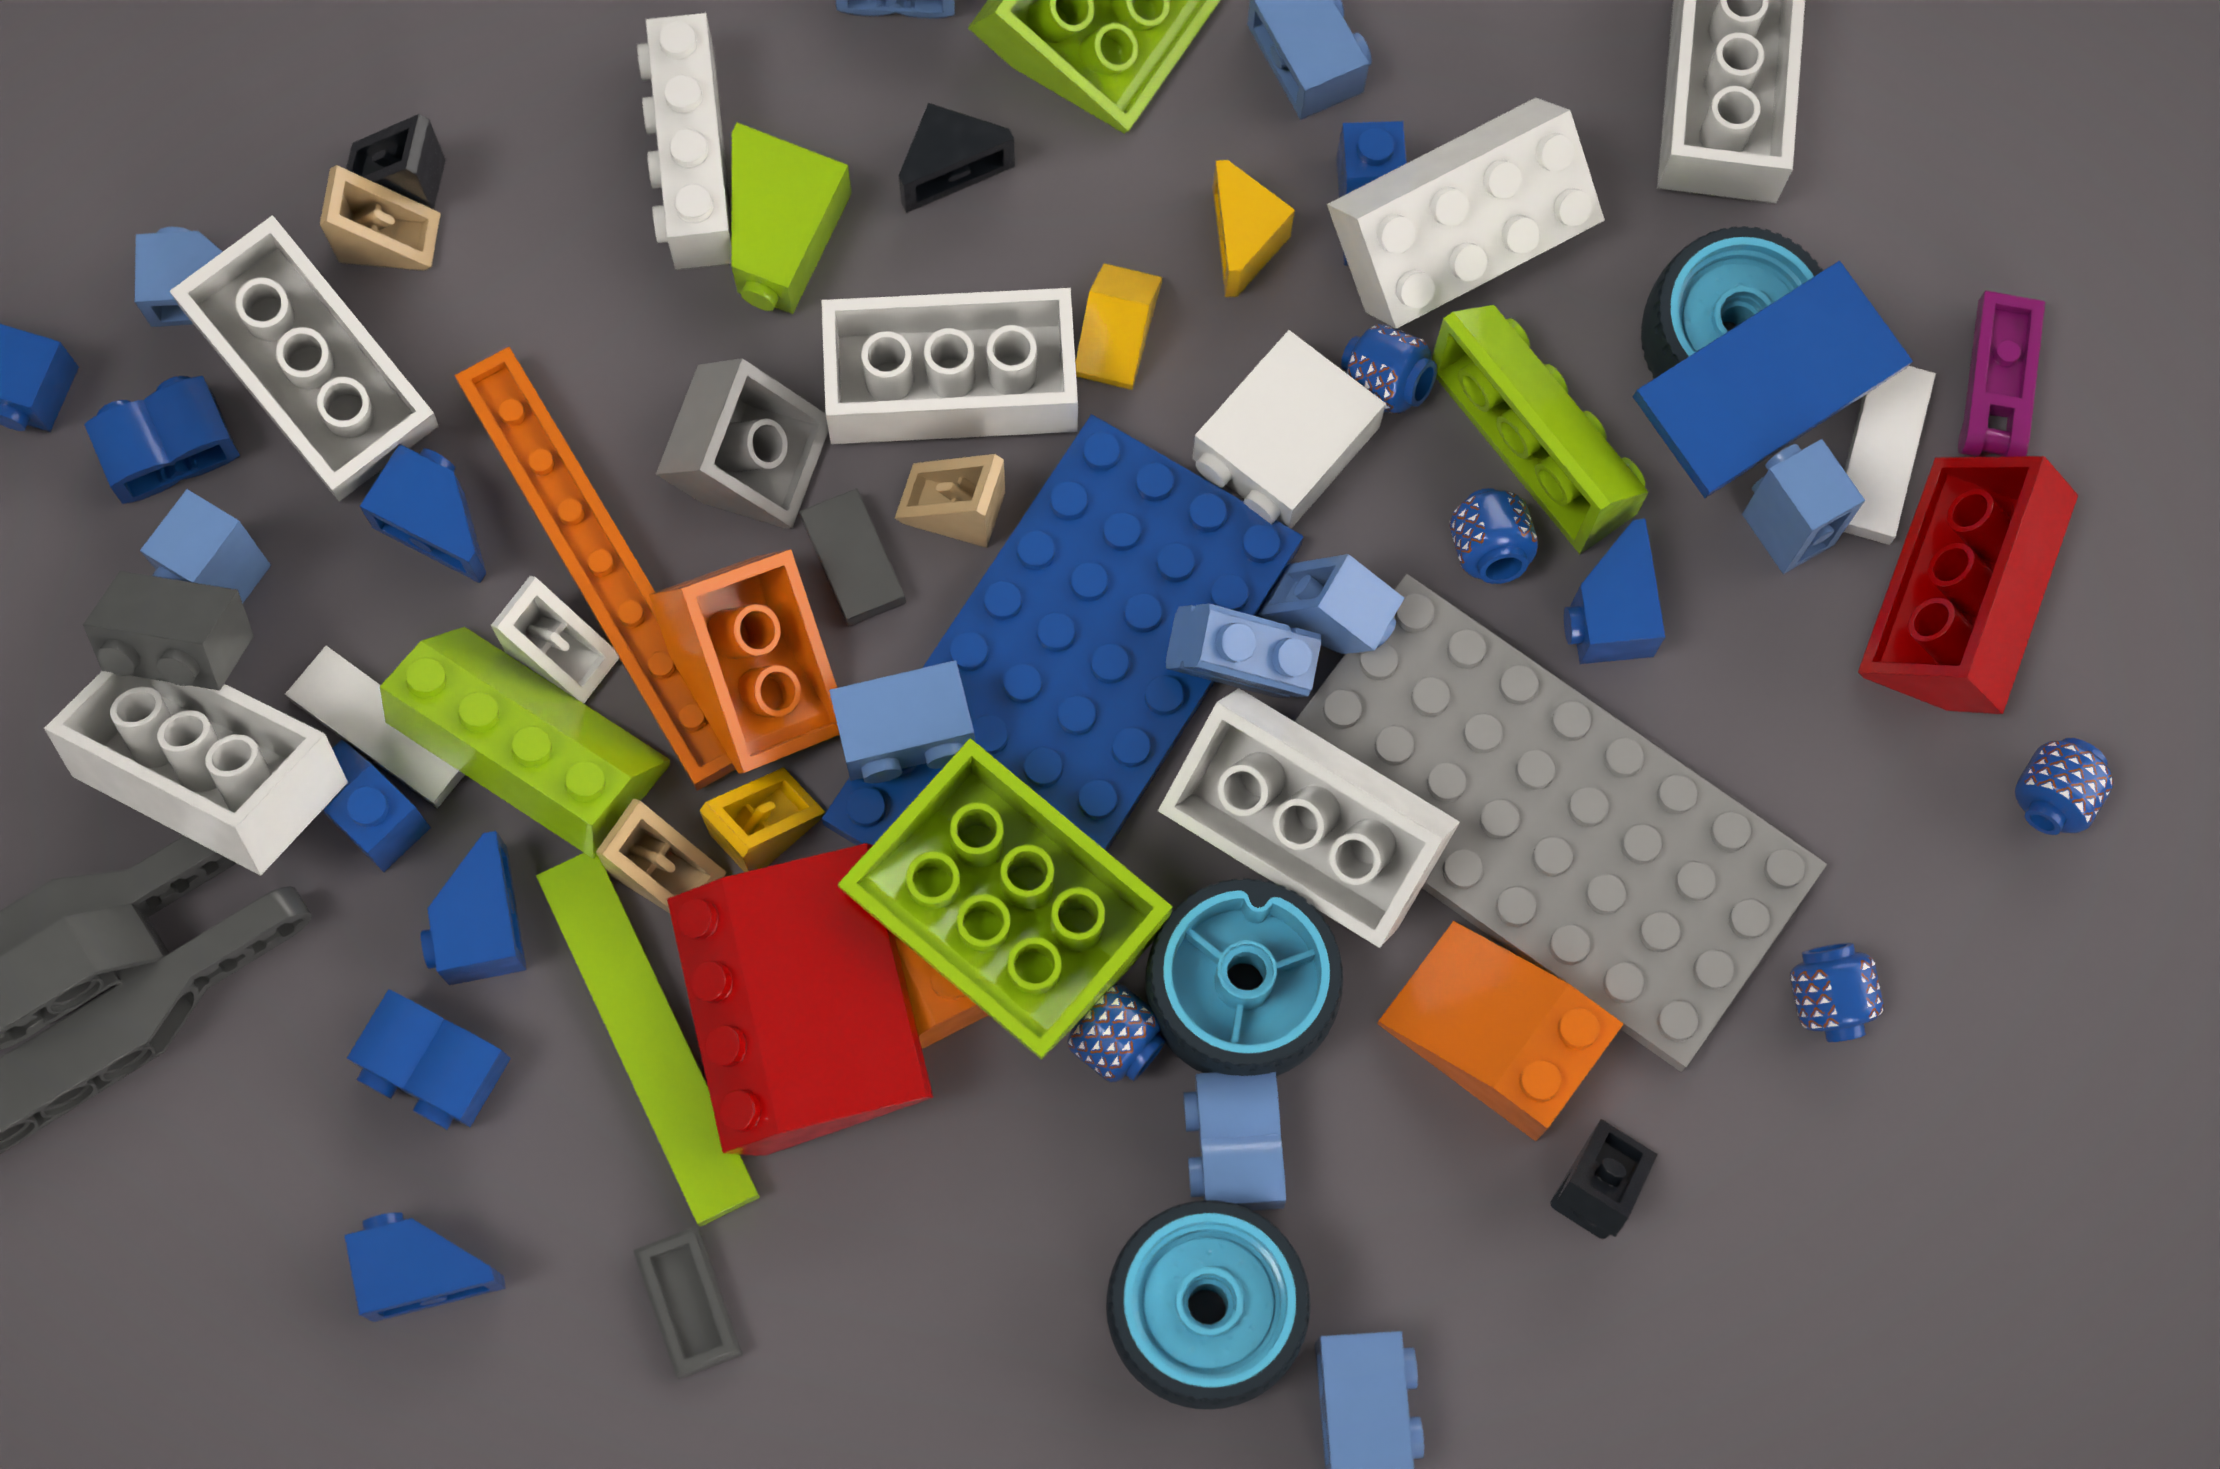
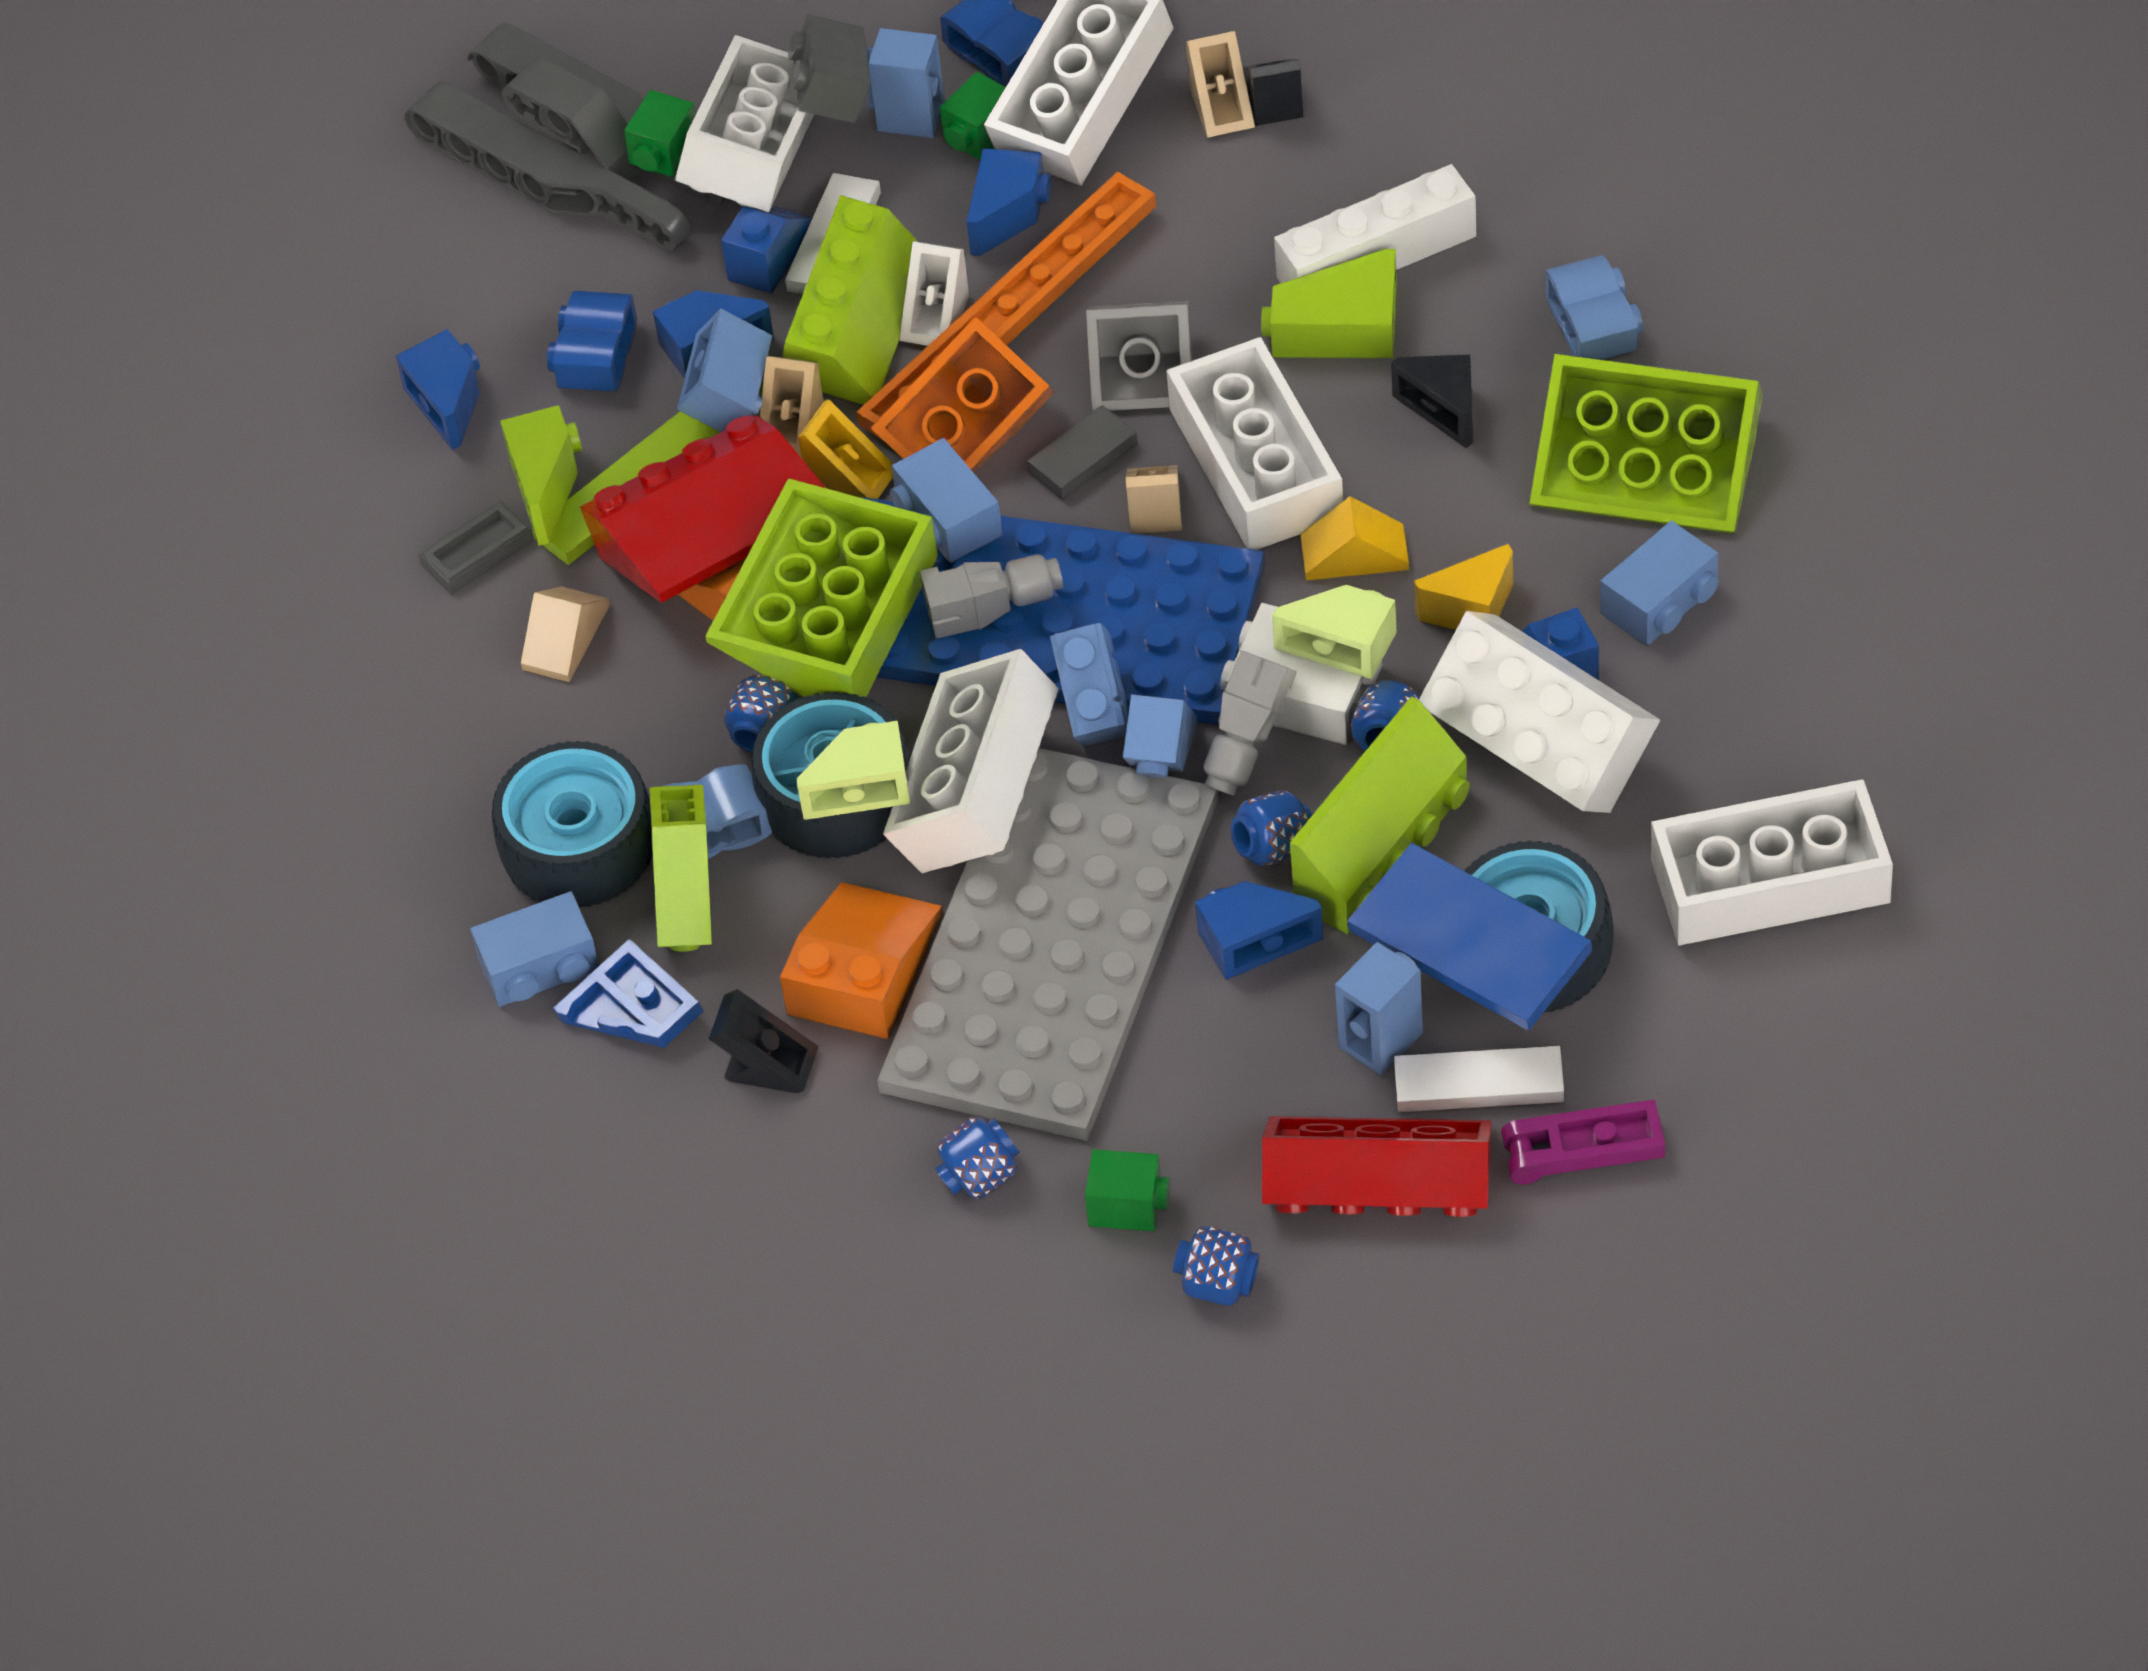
camera: 80 degrees right, 20 degrees down
(160, 870) = (659, 132): none -> green brick
(283, 499) = (966, 113): none -> green brick
(586, 913) = (725, 371): none -> medium blue brick
(602, 1179) = (543, 464): none -> lime slope
(871, 1231) = (561, 630): none -> tan slope
(1060, 717) = (981, 591): none -> light grey piece
(1295, 358) = (1338, 628): none -> yellowish green slope
(1316, 939) = (856, 773): none -> yellowish green slope
(1336, 1190) = (680, 867): none -> lime slope
(1356, 501) = (1247, 715): none -> light grey piece
(1473, 1311) = (630, 1000): none -> wing
(1929, 849) = (1125, 1190): none -> green brick

